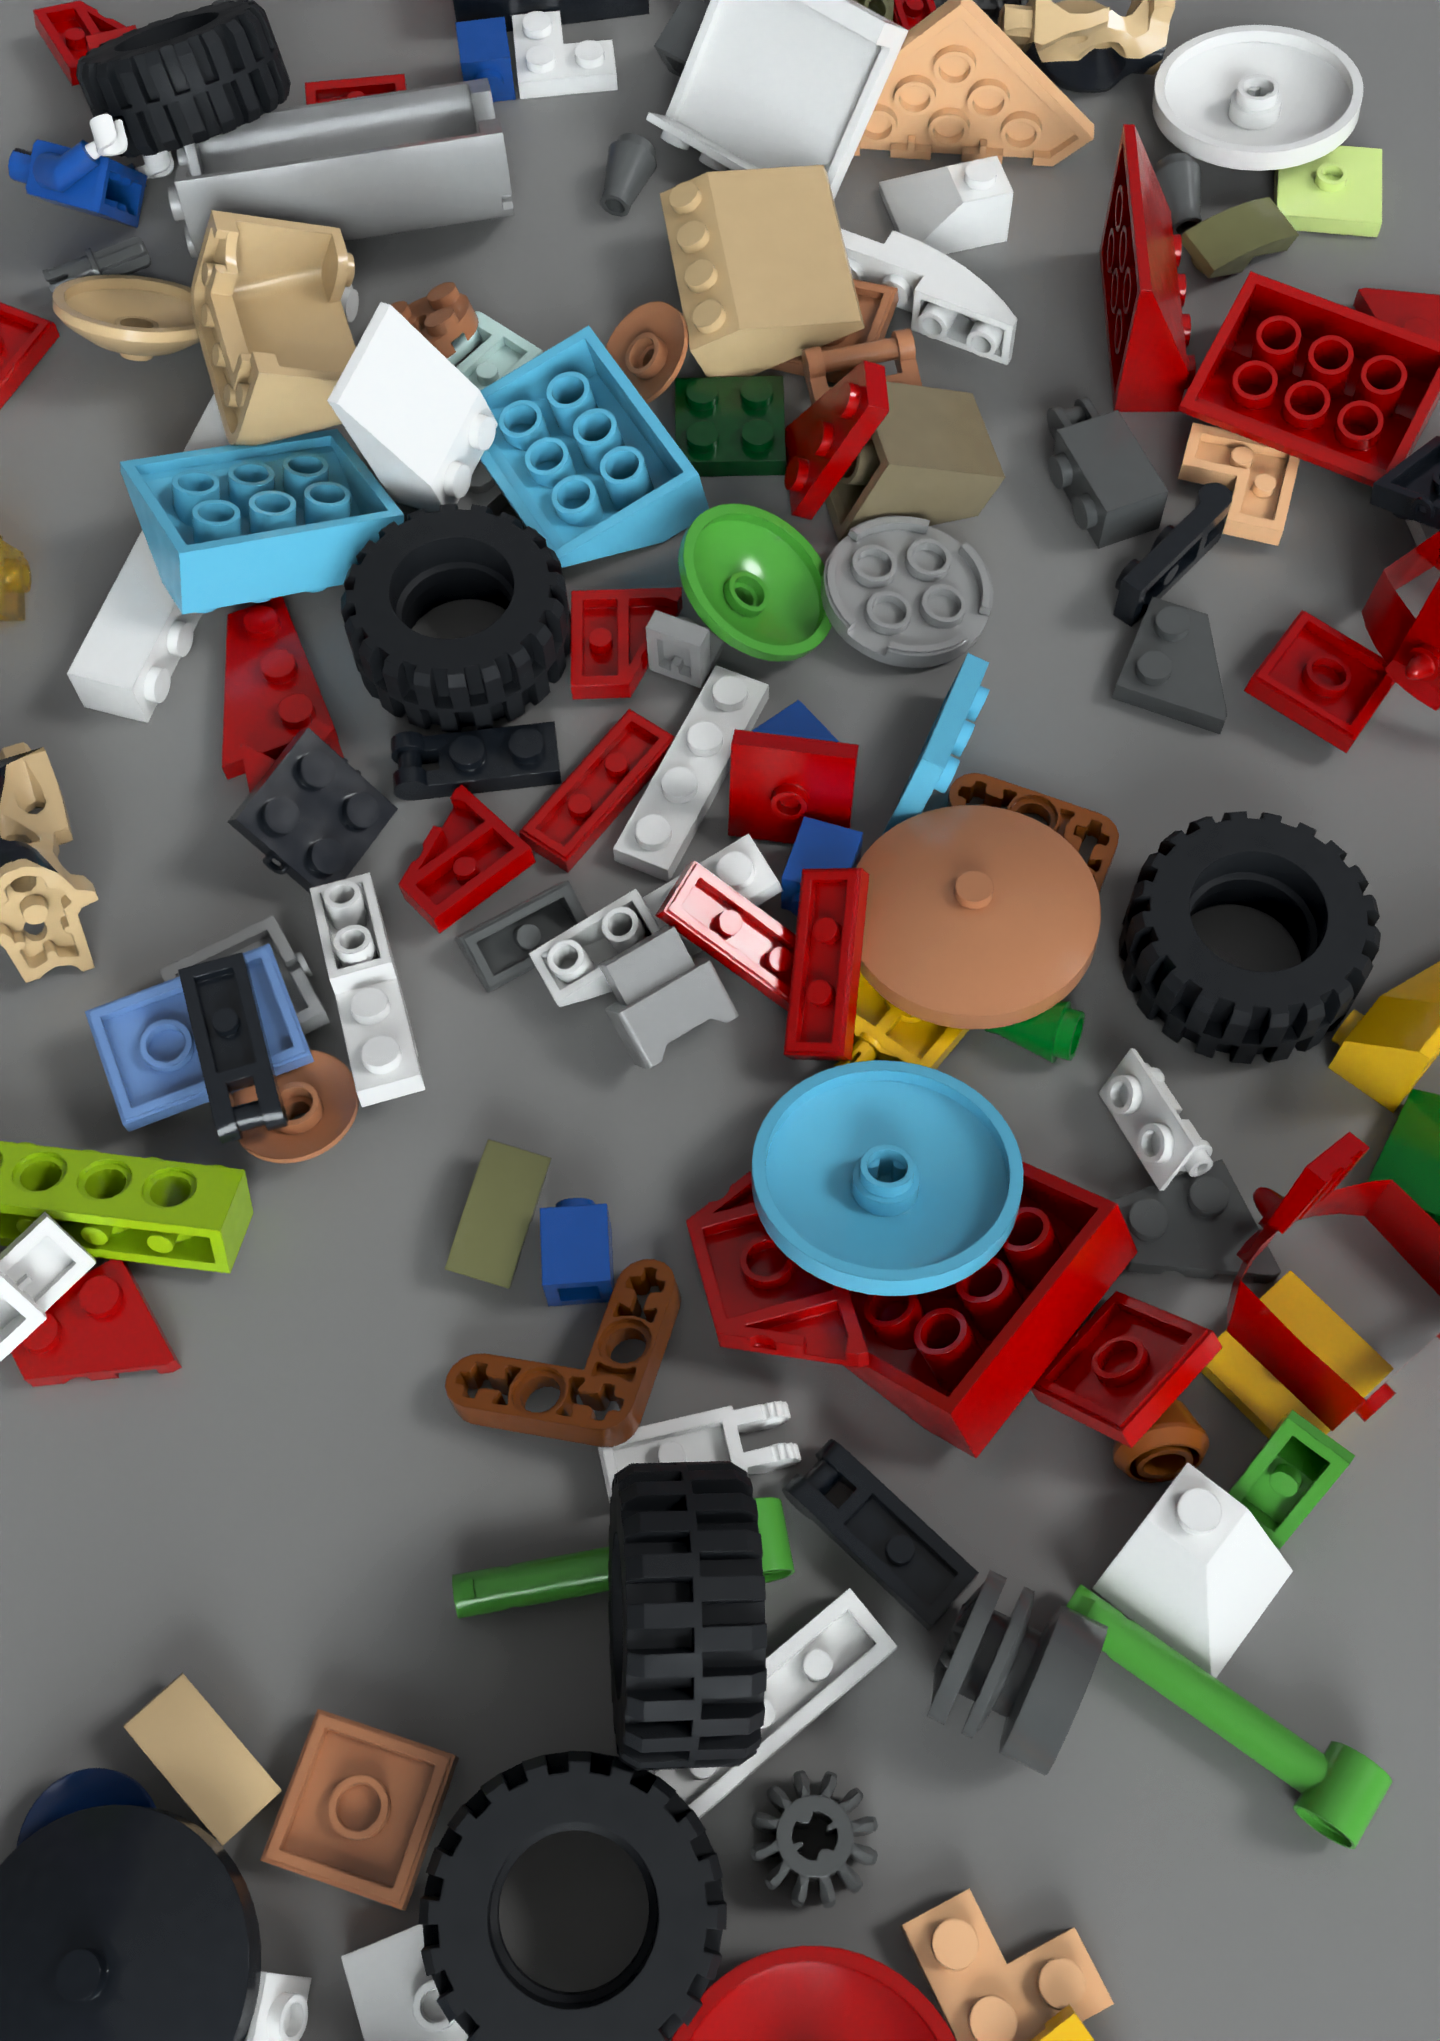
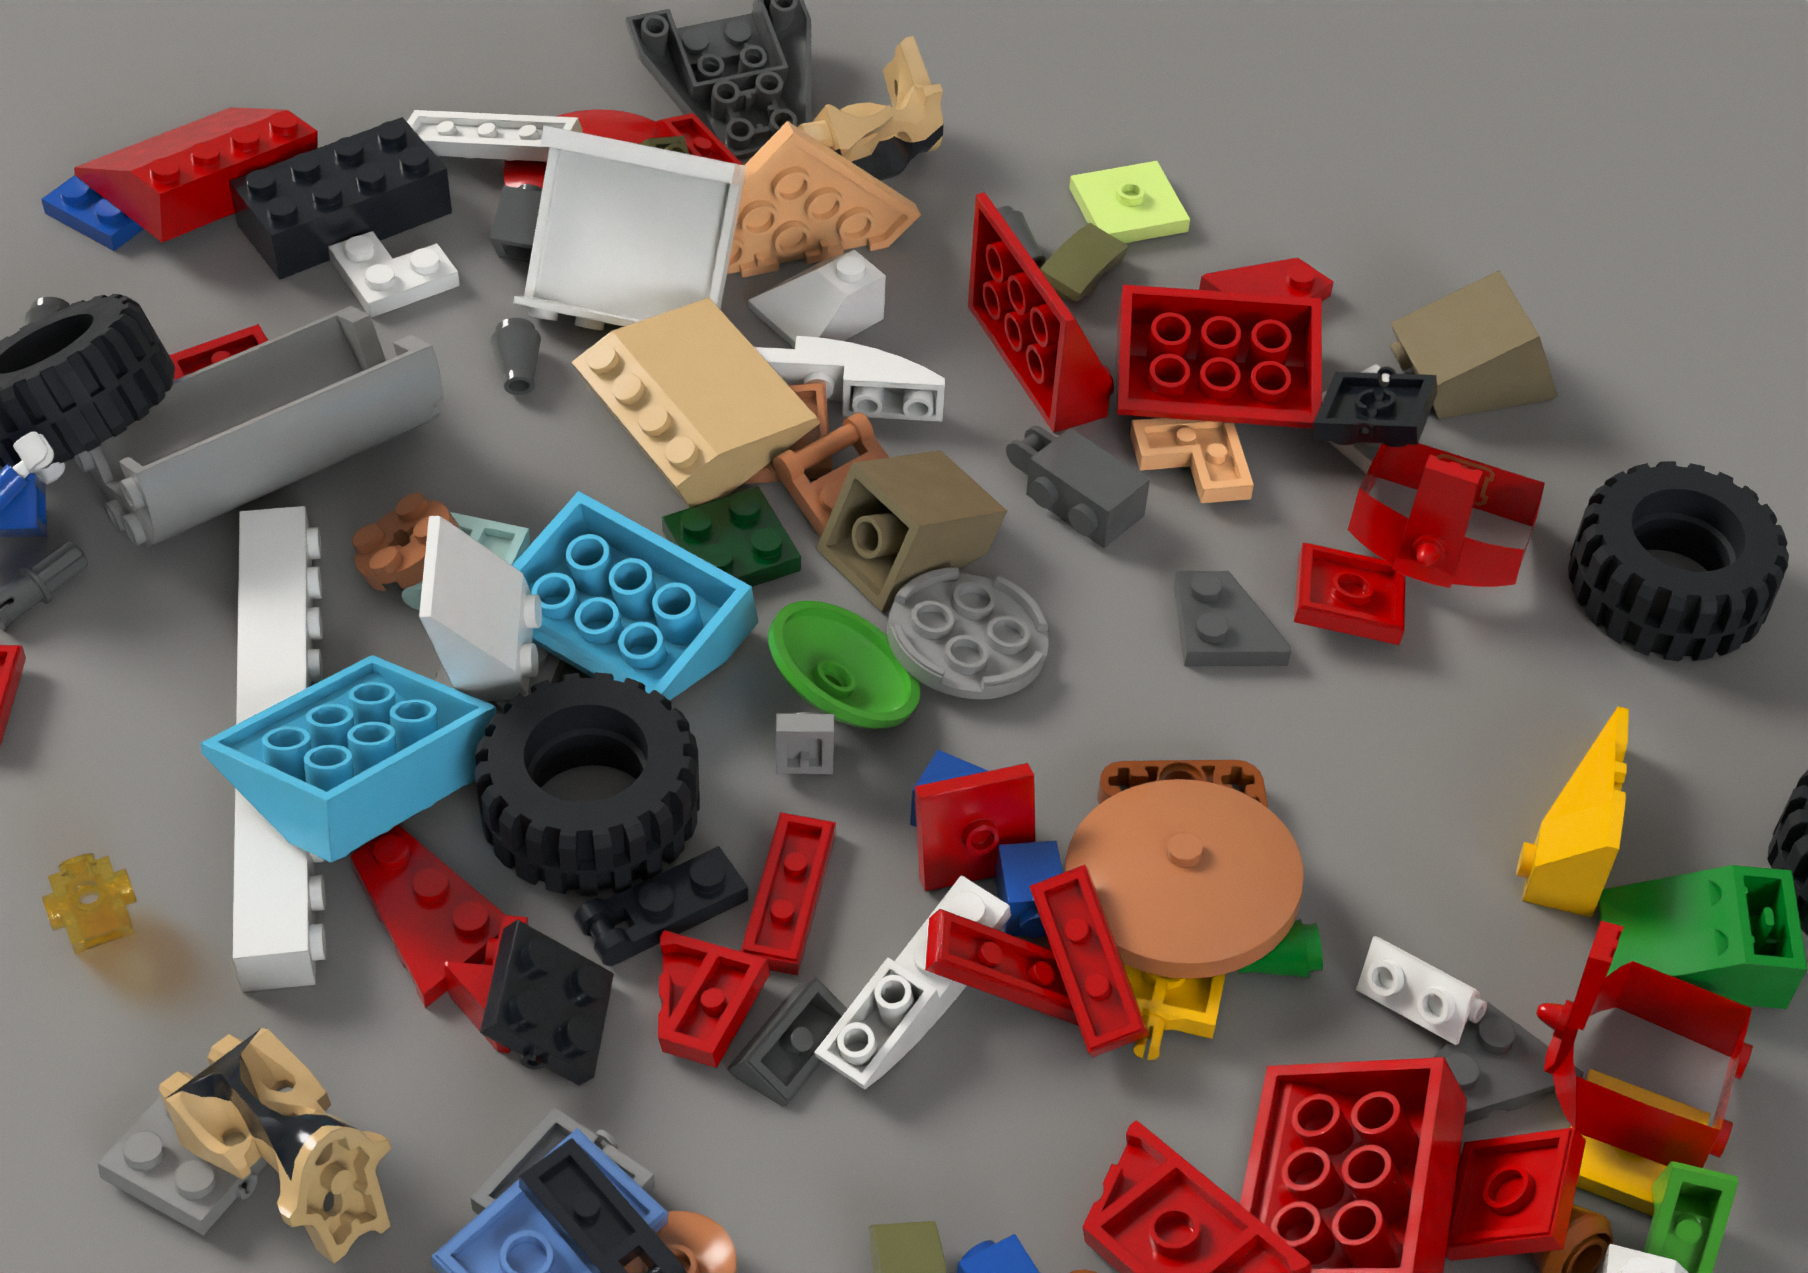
camera: 30 degrees left, 15 degrees down
(128, 314) = (111, 612): tan dish -> none
(272, 323) = (276, 590): tan windscreen -> none
(367, 990) = (679, 1143): white slope -> none
(486, 55) = (325, 285): blue brick -> none
(611, 638) = (738, 756): red wing -> none
(650, 347) = (634, 480): nougat dish -> none
(662, 994) = (959, 1042): light grey piece -> none
(690, 774) = (865, 850): white plate -> none
(831, 436) = (847, 519): red wing -> none
(886, 1178) = (1240, 1116): medium azure dish -> none
(946, 737) = (1078, 748): medium azure wing -> none
(1172, 554) = (1173, 530): black plate -> none
(1257, 97) = (1038, 146): white dish -> none
(1262, 868) = (1404, 870): black tyre -> none

